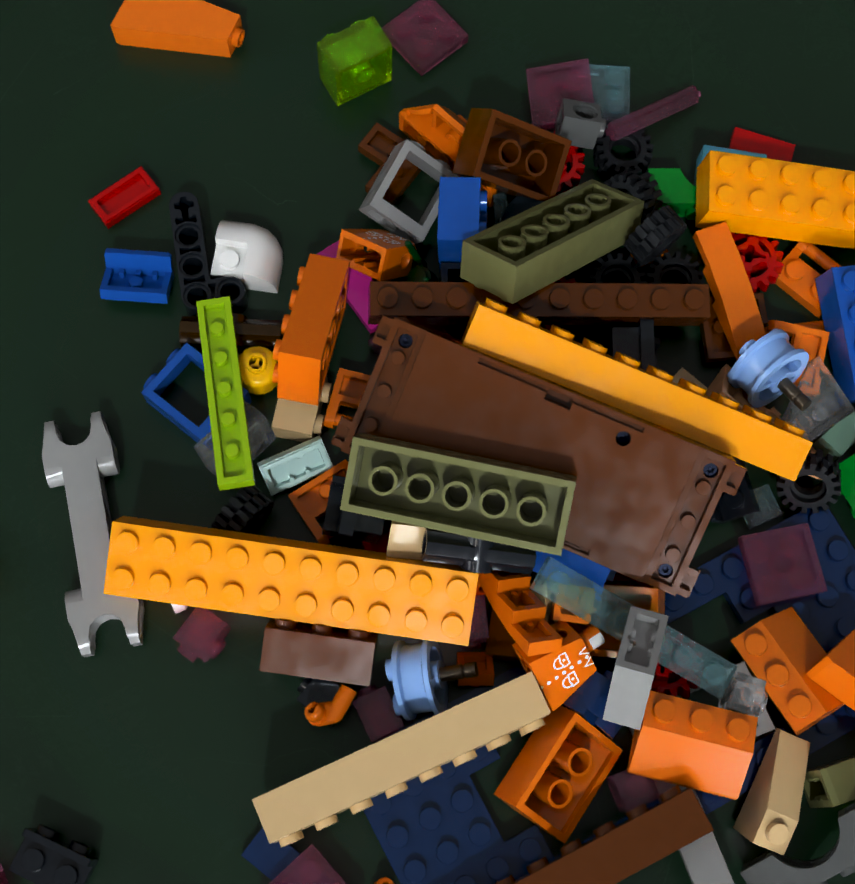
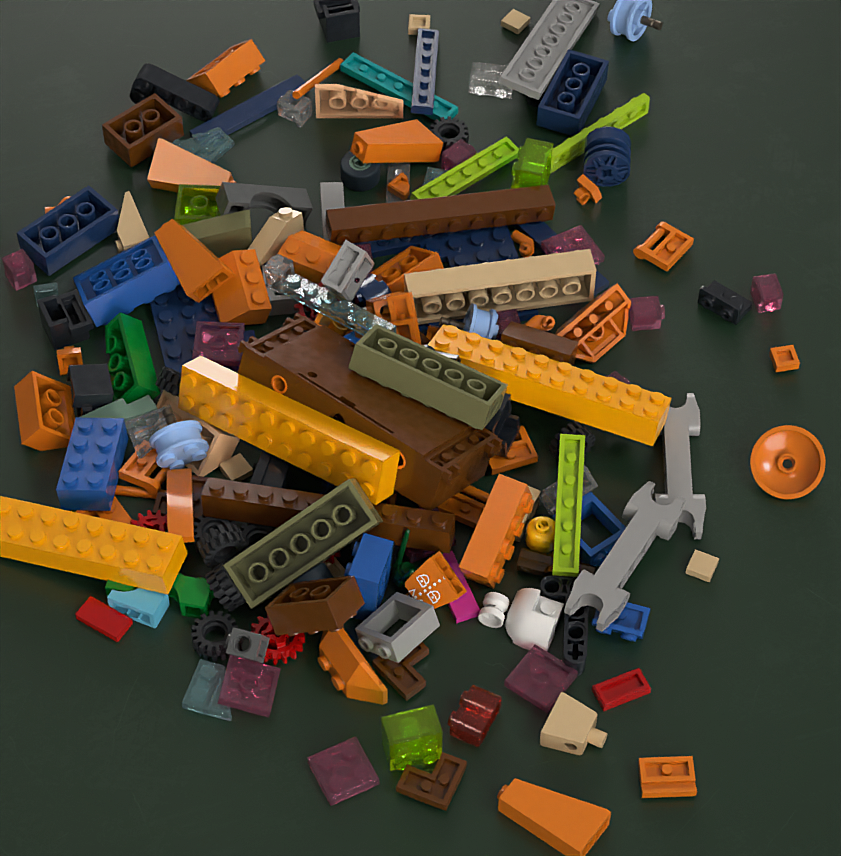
camera: 160 degrees left, 20 degrees down
(42, 386) = (702, 565): none -> tan tile
(54, 96) = (667, 777): none -> orange plate
(117, 395) = (605, 587): none -> light grey piece
(172, 800) = (646, 313): none -> clear pink brick
(175, 128) = (571, 727): none -> tan torso
(224, 182) = (540, 678): none -> clear pink plate
(251, 744) = (598, 324): none -> orange wedge
(290, 119) = (474, 715): none -> clear red brick
(295, 465) = (531, 474): light aqua plate -> none
(297, 253) = (493, 611): none -> white wheel
(309, 29) = (433, 788): none -> reddish brown plate
(652, 113) = (181, 650): clear pink axle -> none

